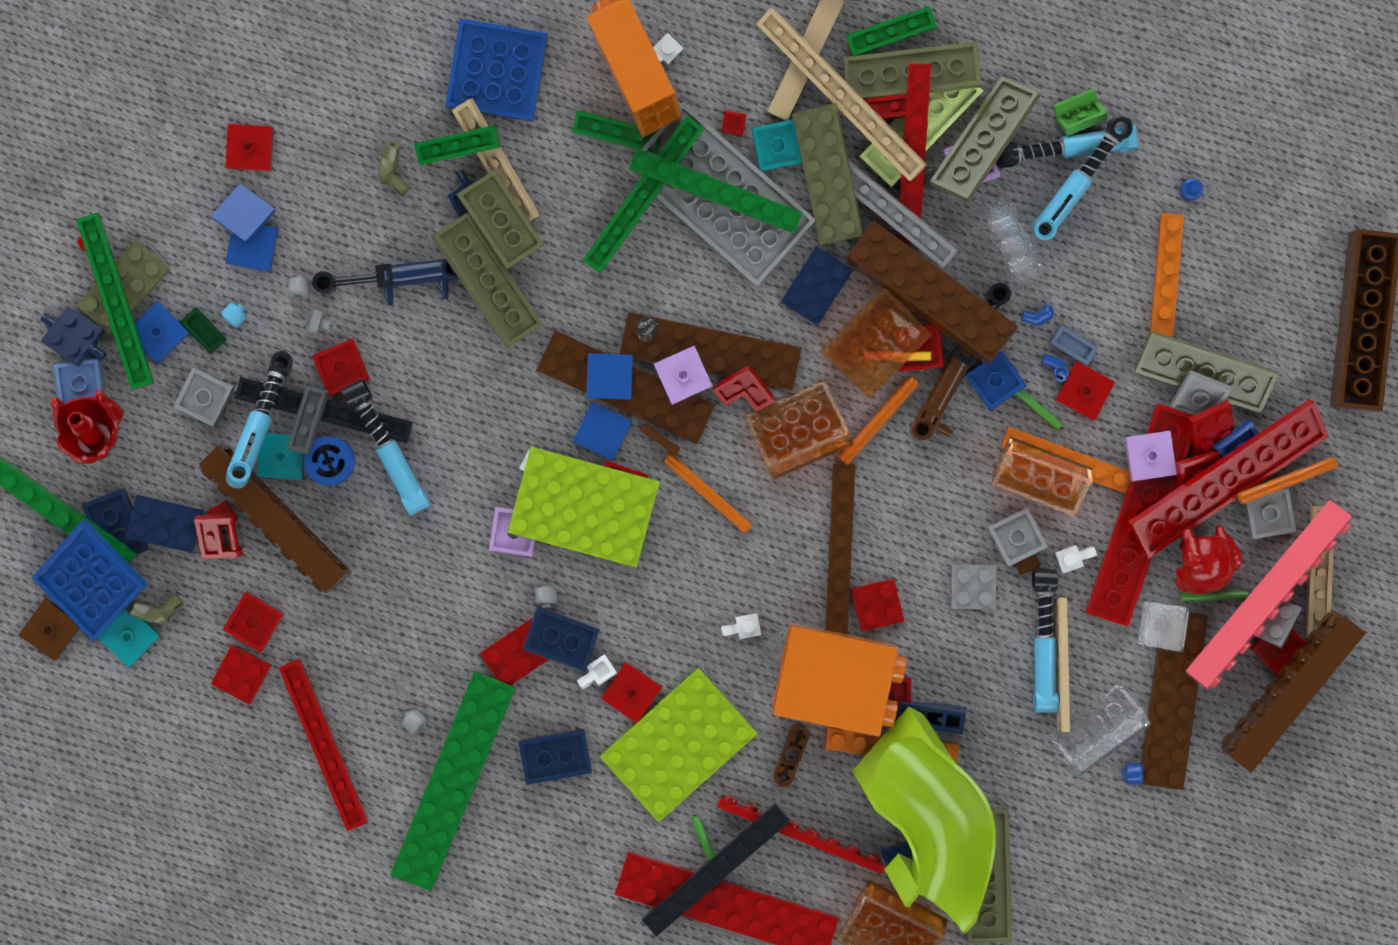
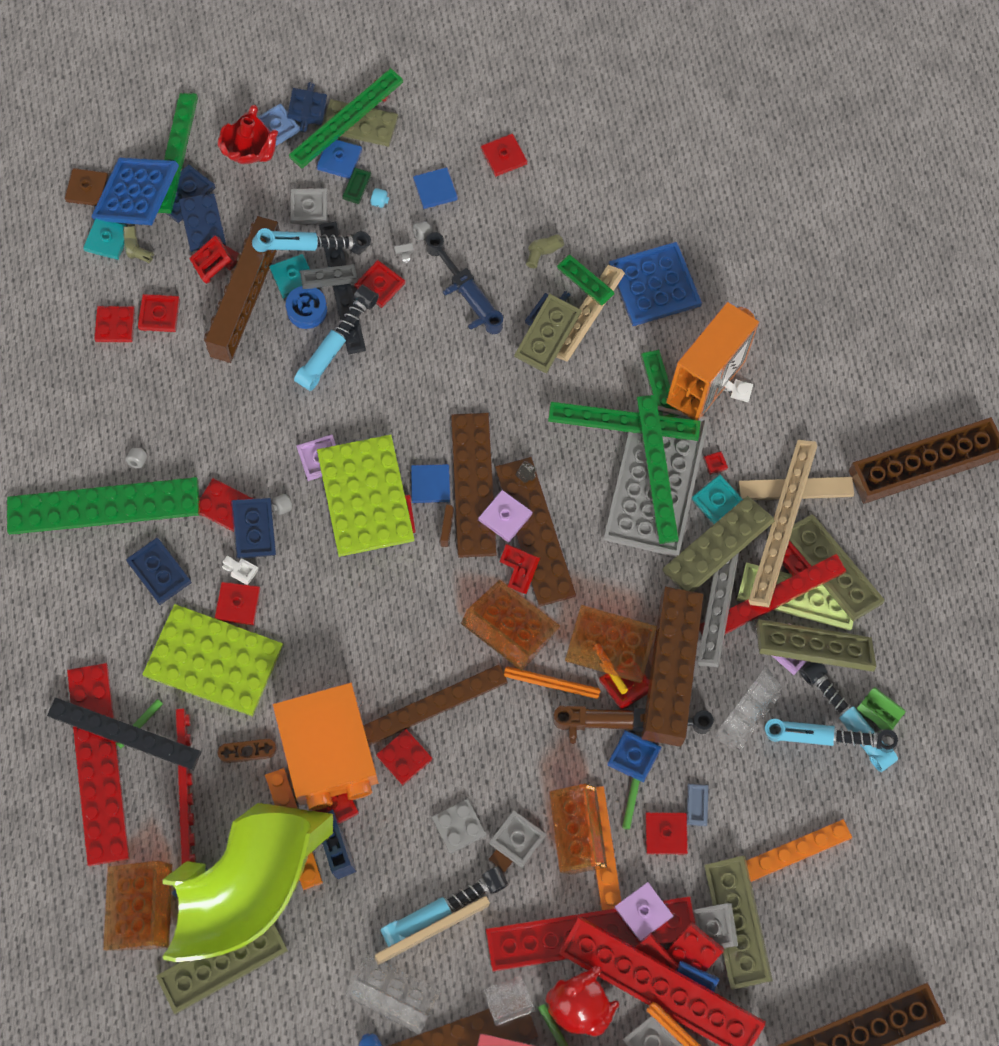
camera: 60 degrees right, 20 degrees down
(243, 213) = (454, 170): tile -> none
(323, 744) = (87, 403): red plate -> none
(486, 280) = (498, 346): olive plate -> none
(609, 376) = (475, 464): blue tile -> none
(708, 493) = (424, 583): orange axle -> none
(745, 626) = (333, 663): white plate -> none
(816, 286) = (629, 583): dark blue plate -> none
(891, 31) = (853, 539): green plate -> none
(1040, 317) = (704, 766): blue arm -> none
(1058, 367) = (673, 801): blue arm -> none
(1071, 558) = (524, 896): white plate -> none
(1191, 189) = (875, 833): blue piece -> none

